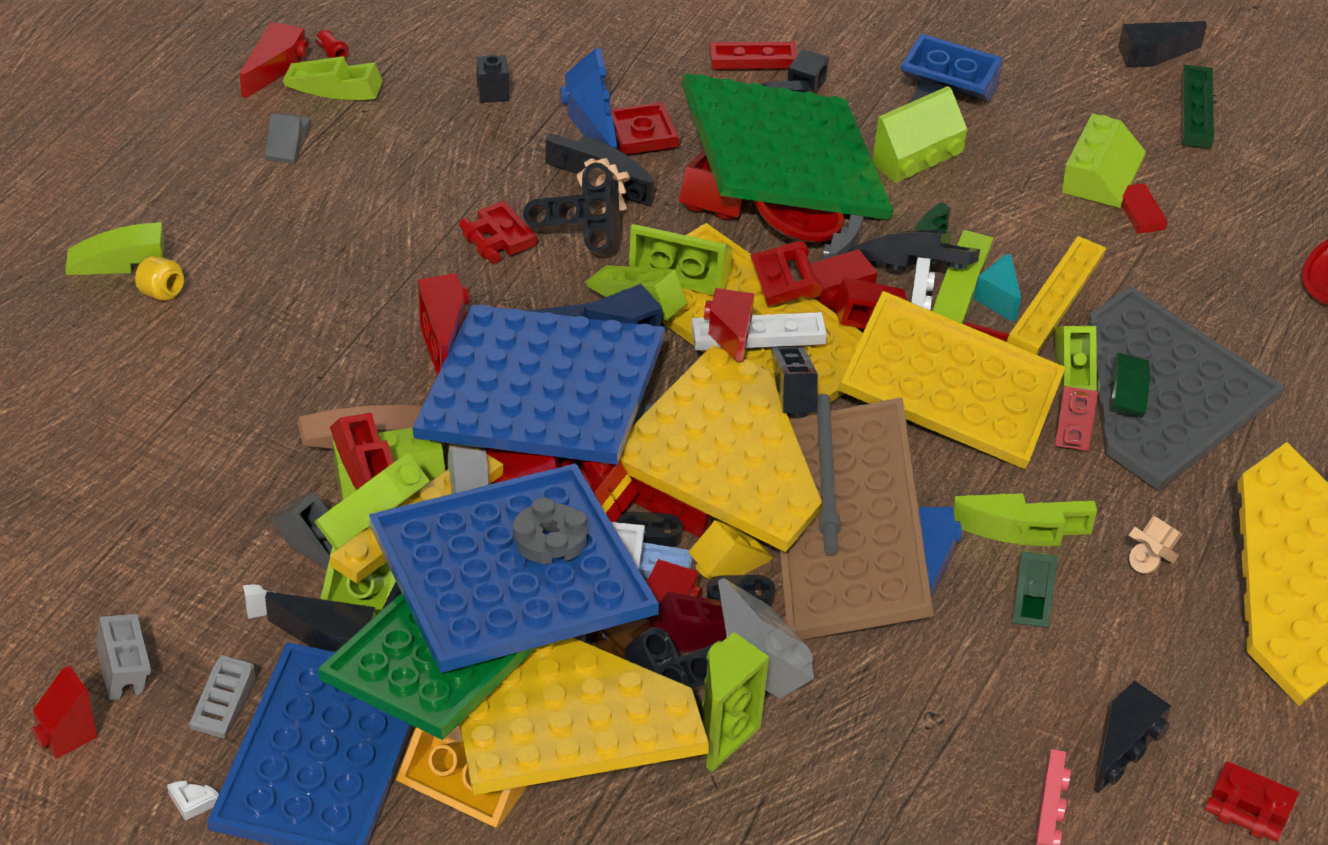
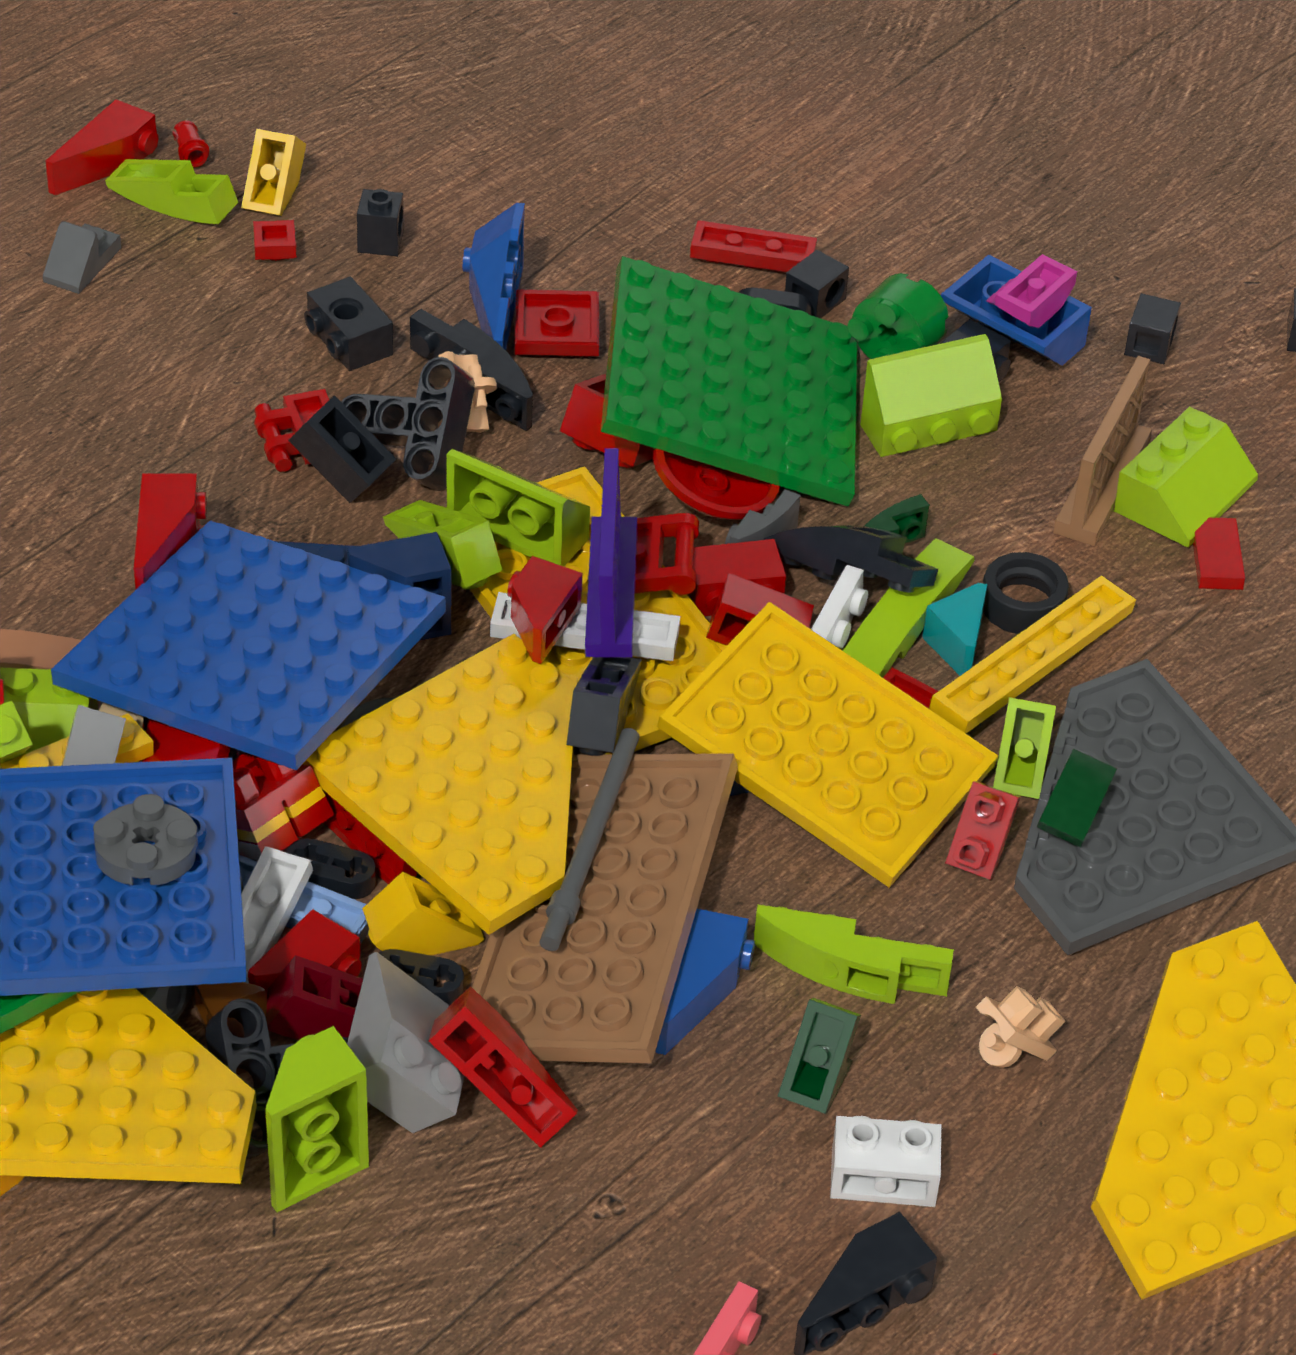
camera: 15 degrees right, 0 degrees up
(401, 56) = (273, 172): none -> yellow slope
(421, 103) = (274, 239): none -> red plate
(501, 152) = (349, 323): none -> black brick
(540, 239) = (342, 449): none -> black brick
(767, 279) = (611, 572): none -> dark purple fence
(833, 639) = (501, 1066): none -> red slope
(877, 88) = (899, 317): none -> green brick
(966, 52) = (1036, 291): none -> dark pink slope
(1037, 242) = (1028, 570): none -> black tyre
(1039, 66) = (1152, 328): none -> black brick
(1049, 162) = (1111, 449): none -> medium nougat fence
(1105, 650) = (886, 1161): none -> white brick

